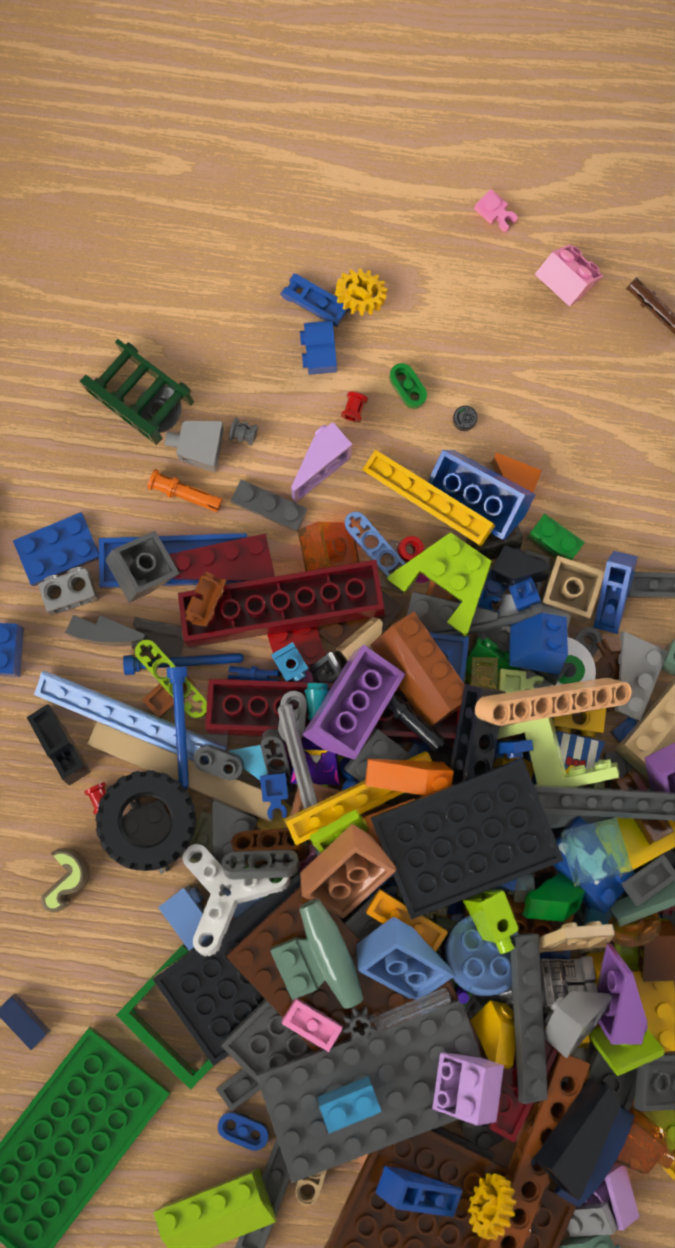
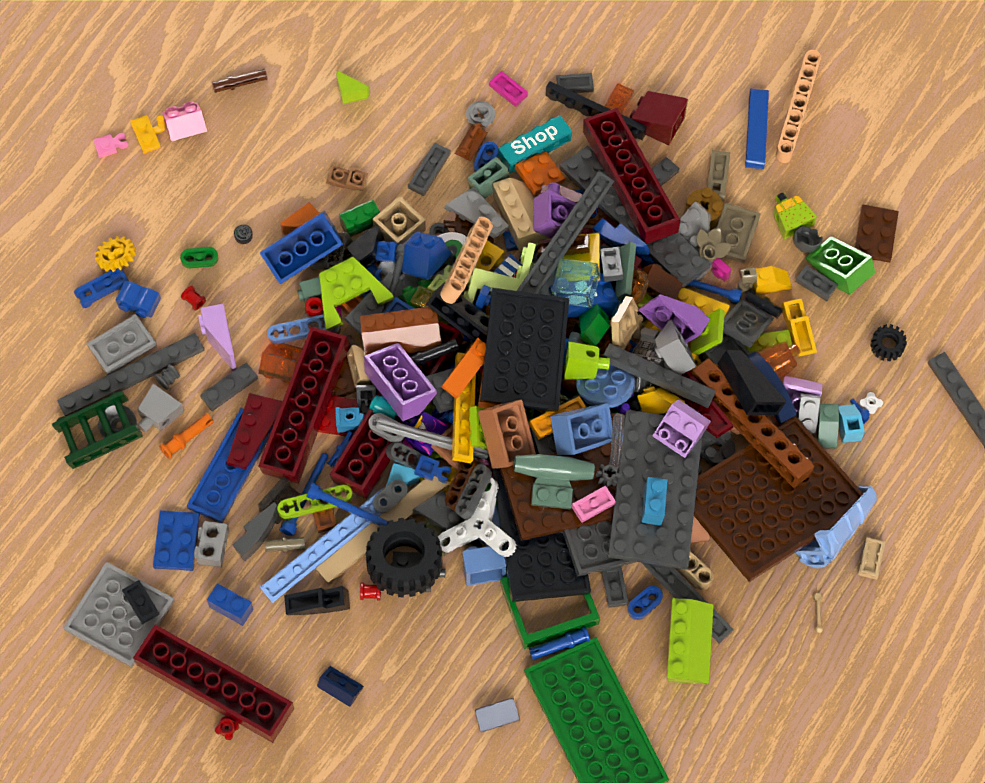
camera: 60 degrees left, 15 degrees down
(72, 882) = (418, 634): dark tan animal -> none
(109, 671) = (284, 544): none -> dark tan pin
(141, 566) = (226, 481): dark grey slope -> none
(142, 1053) = (568, 641): none -> blue pin
(202, 610) = (278, 446): dark orange hinge -> none
(227, 391) = (131, 374): none -> dark grey plate
(256, 360) = (121, 344): none -> light grey plate
(417, 1192) = (733, 495): blue slope -> none
(428, 497) = (285, 279): yellow plate -> none
(430, 531) = (310, 289): none -> sand green brick
(491, 1206) = (765, 456): yellow gear -> none
(532, 242) = (146, 133): none -> yellow plate
(600, 496) = (348, 179): none -> medium nougat slope
(615, 591) = (416, 199): blue slope -> none

